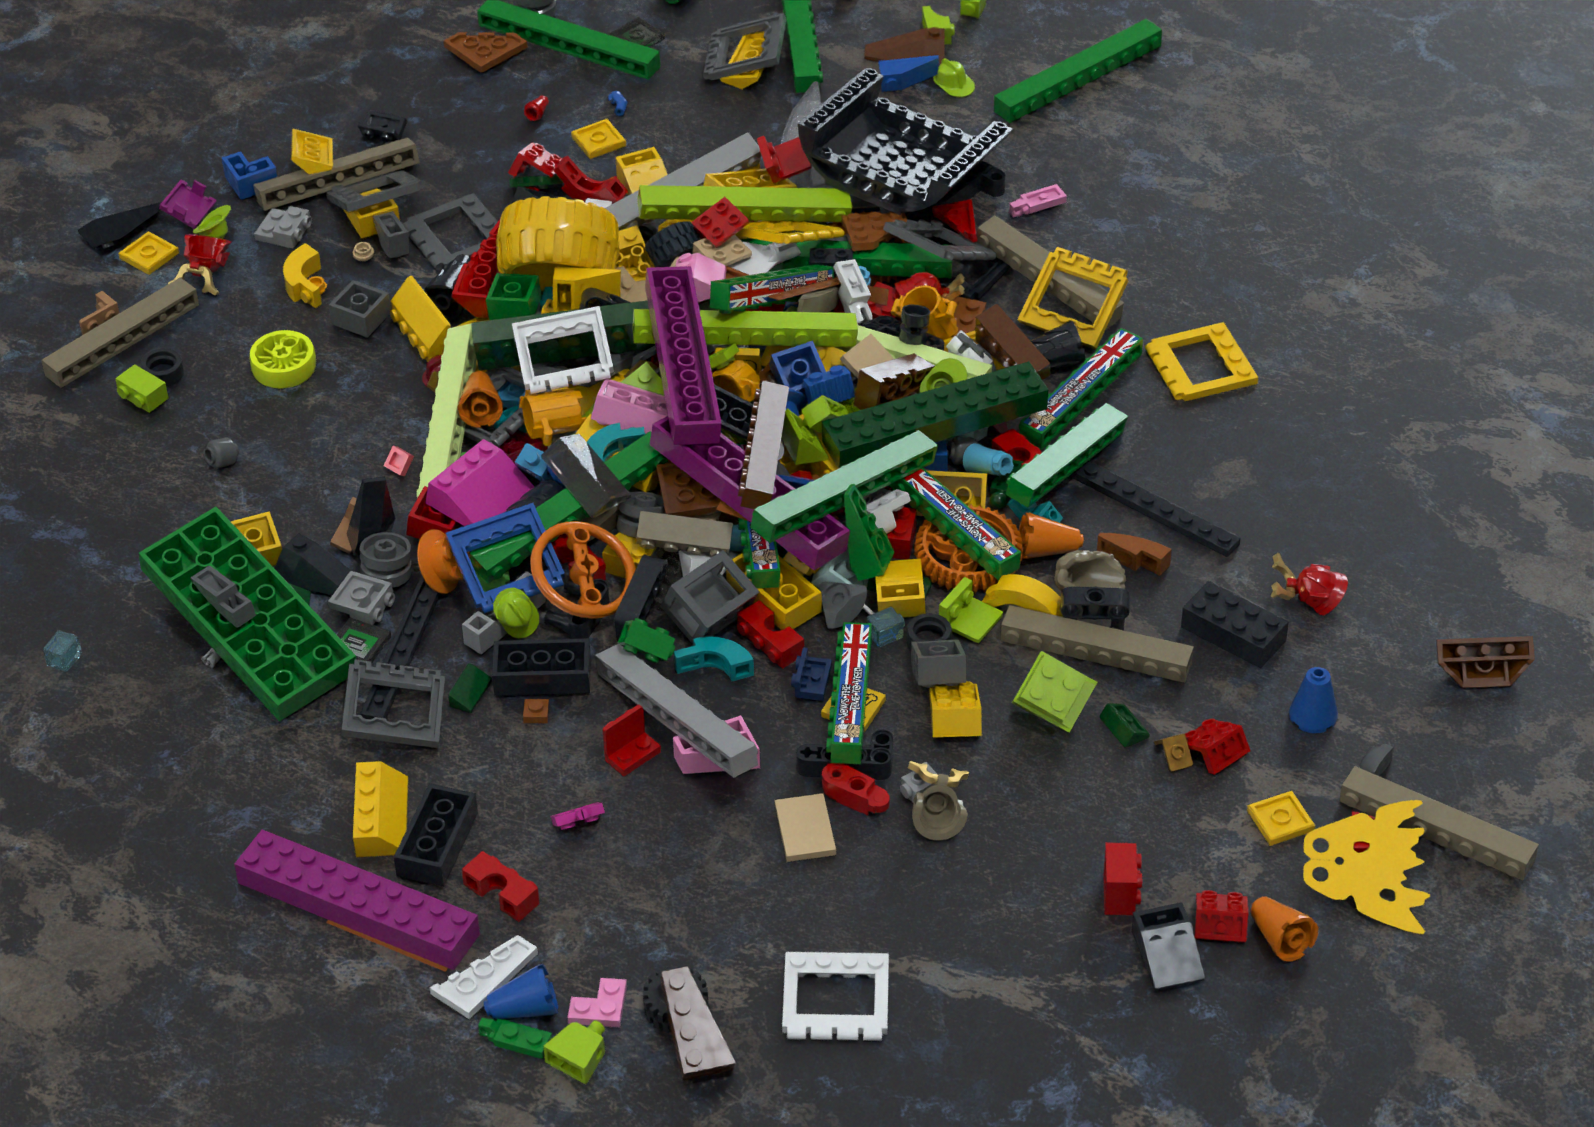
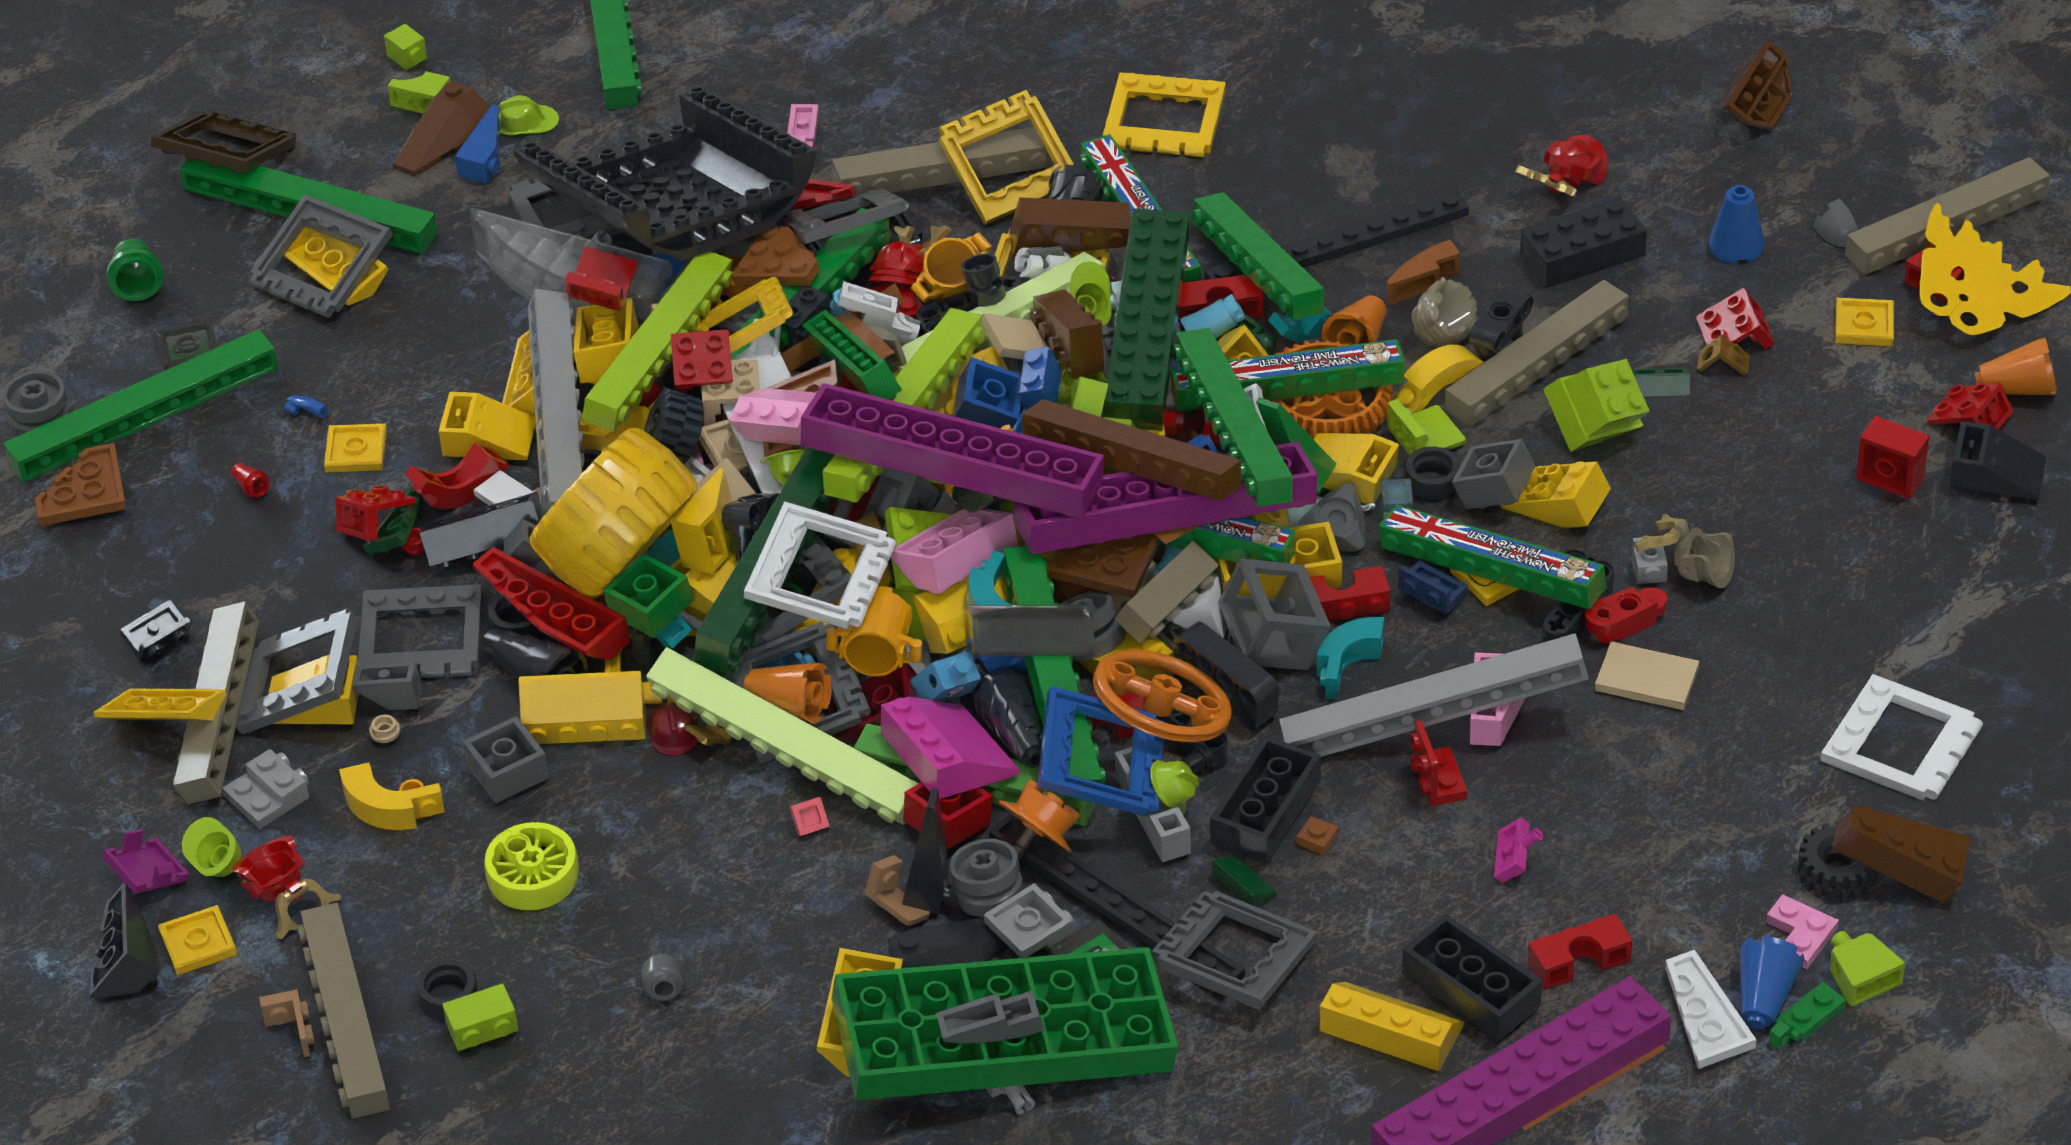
camera: 60 degrees left, 0 degrees up
(244, 174) = (145, 790): blue brick -> none
(652, 643) = (1303, 688): green brick -> none

